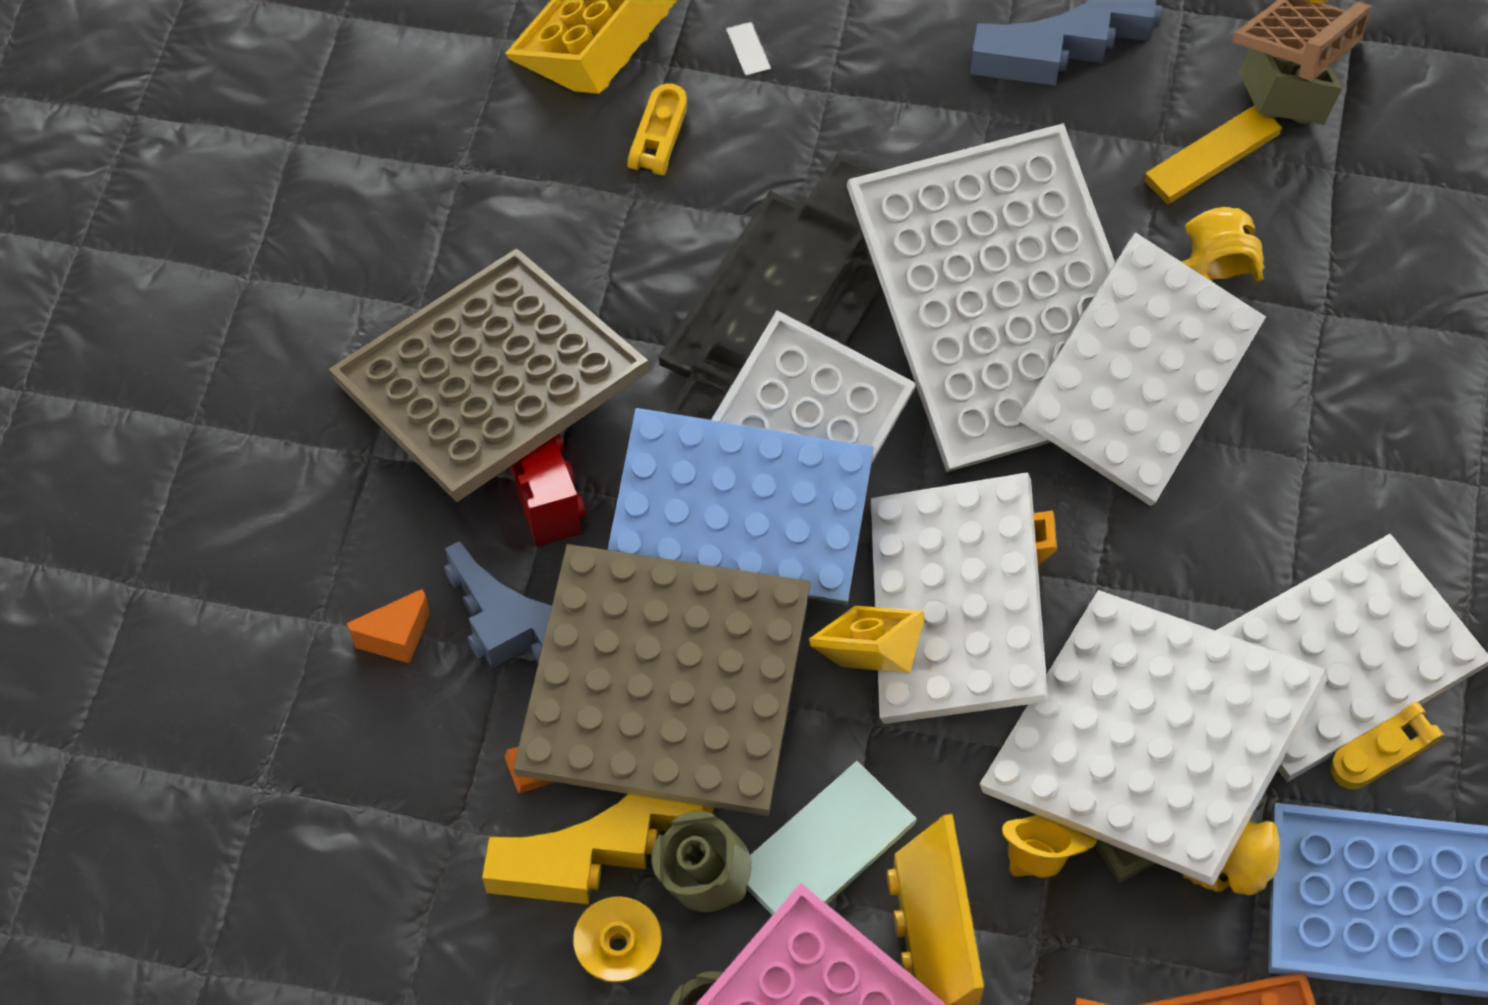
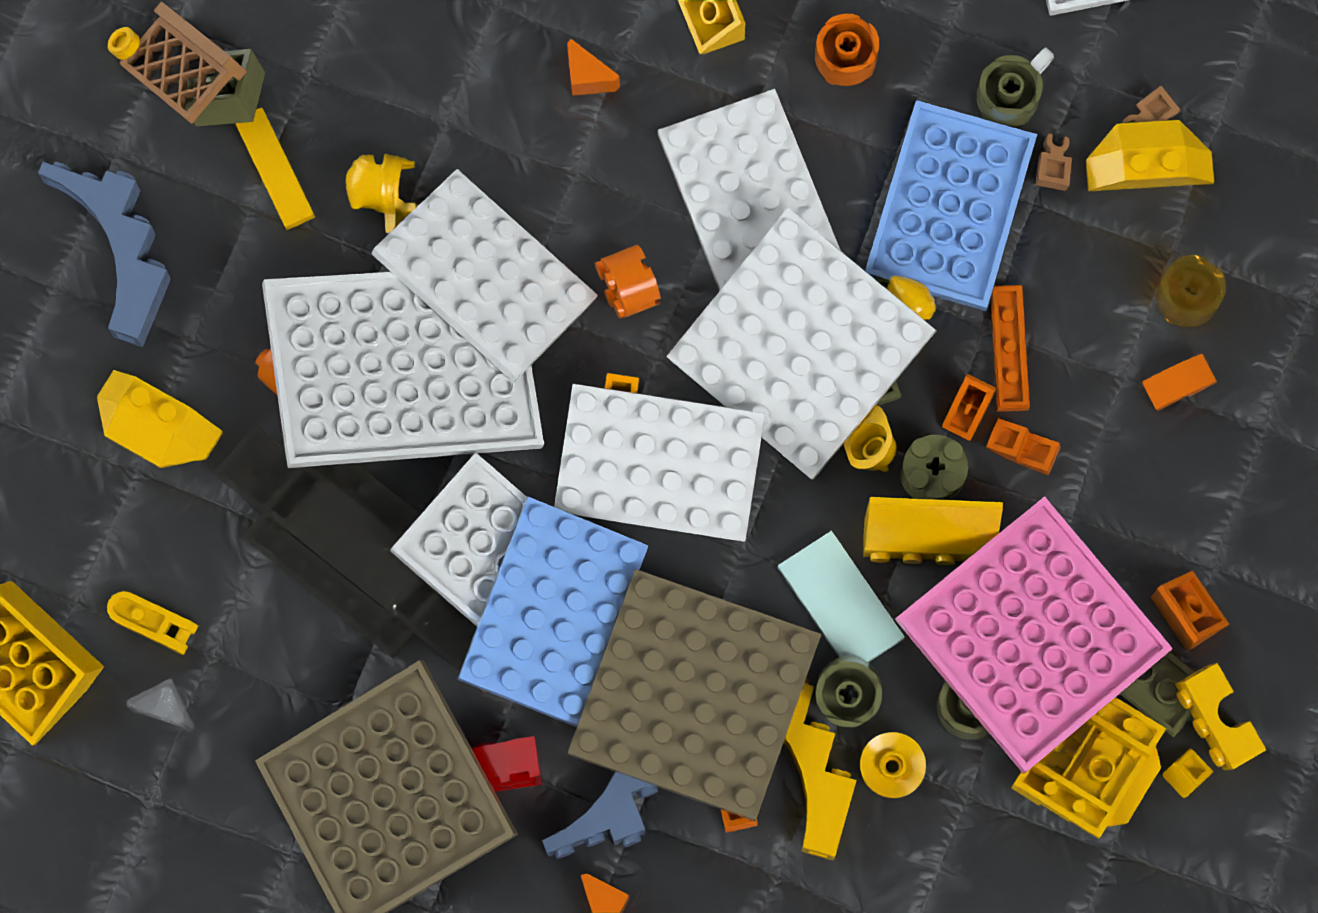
camera: 80 degrees left, 15 degrees up
(567, 156) = (164, 704): none -> clear slope
(748, 48) = (72, 530): white sticker -> none
(872, 638) = (684, 531): yellow slope -> none
(882, 95) = (153, 422): none -> yellow wedge
(1004, 940) = (937, 452): none -> olive brick
(1124, 965) = (969, 407): none -> orange slope
(1178, 522) = (629, 282): none -> orange brick
(1384, 748) = (830, 184): yellow plate -> none
(1434, 440) = (588, 73): none -> orange slope

